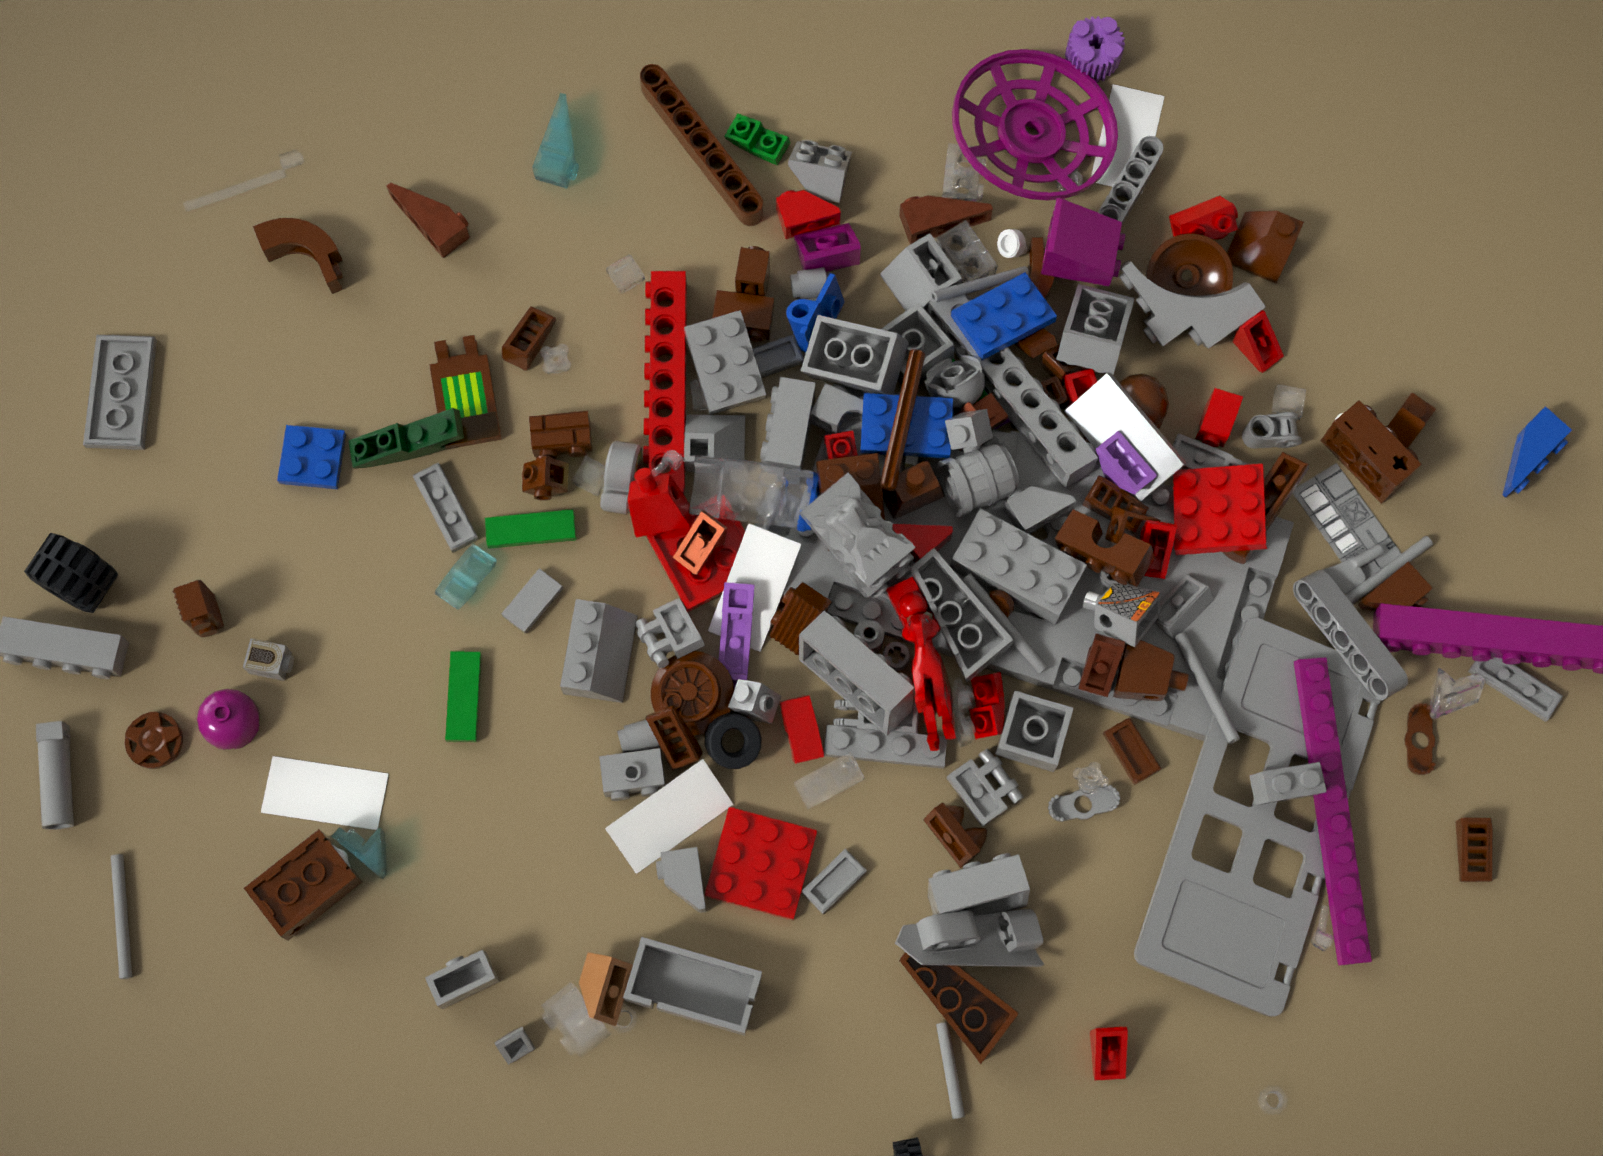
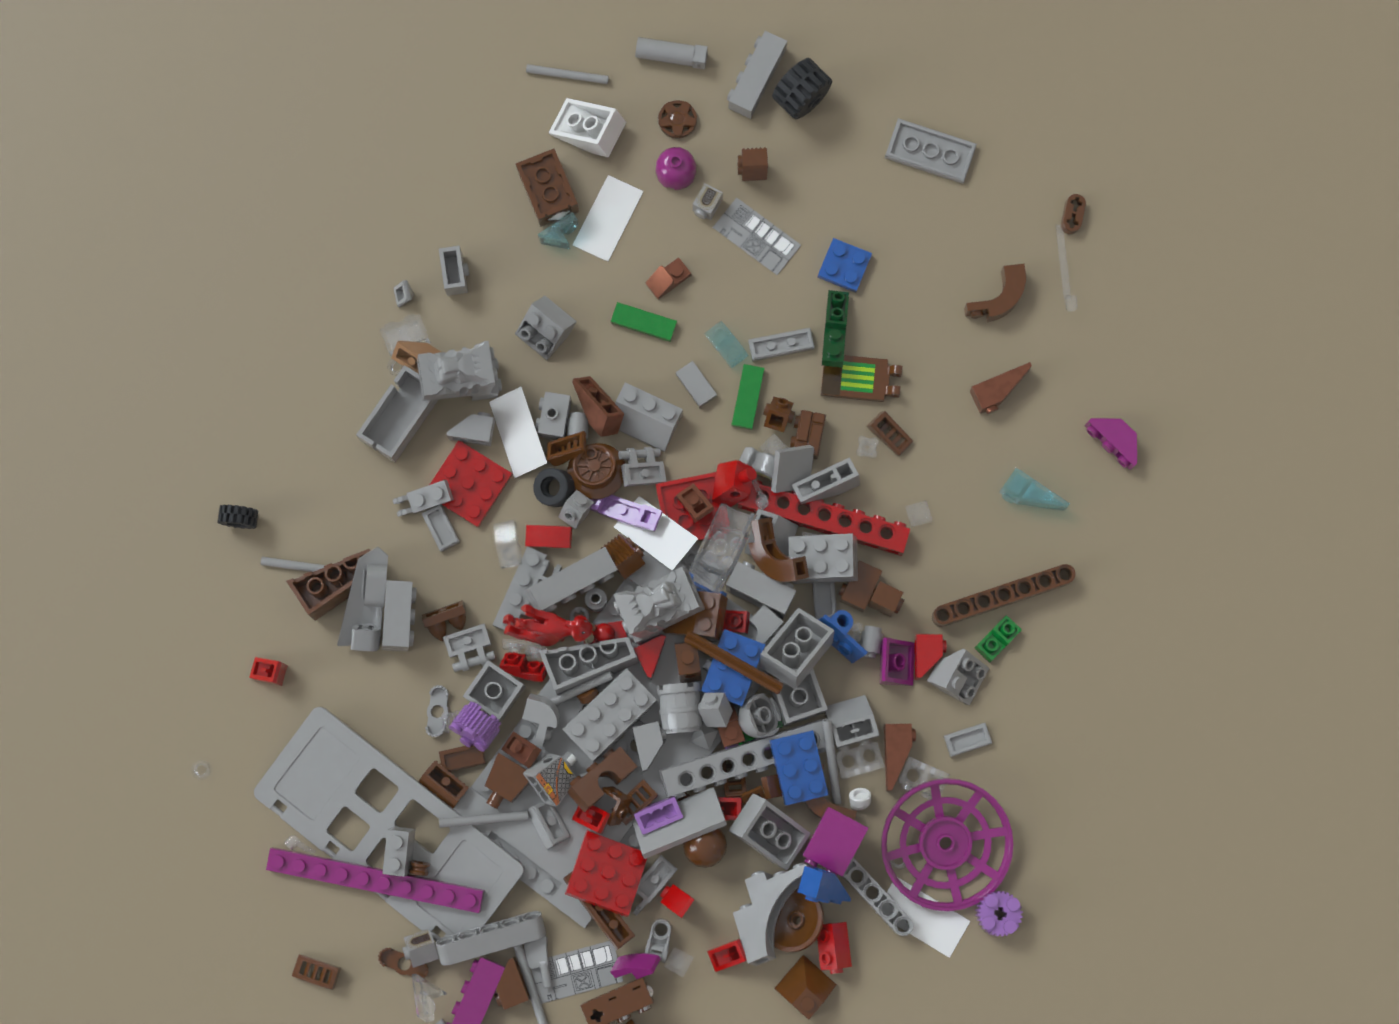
camera: 110 degrees right, 5 degrees up
(166, 191) = (1077, 214): none -> reddish brown beam
(195, 859) = (588, 126): none -> white slope
(299, 584) = (756, 236): none -> light grey sticker
(392, 682) = (667, 278): none -> copper slope
(459, 63) = (1116, 438): none -> magenta slope
(509, 825) = (545, 327): none -> light grey slope
(604, 714) = (598, 407): none -> copper slope
(614, 912) = (460, 373): none -> light grey brick
(616, 433) = (791, 466): none -> light grey tile
(620, 388) = (827, 482): none -> light grey slope
(751, 417) = (770, 558): none -> reddish brown arch
(801, 912) = (425, 498): none -> light grey hinge
(895, 142) = (967, 739): none -> light grey tile
(1045, 651) = (542, 711): none -> light grey brick
(1090, 737) = (475, 726): none -> medium lavender brick
(1143, 244) = (822, 886): none -> blue slope
(1179, 758) = (443, 784): none -> reddish brown brick
(1298, 751) = (419, 868): none -> reddish brown bush
(1314, 440) = (637, 964): none -> magenta slope
(1396, 719) = (420, 948): none -> light grey brick

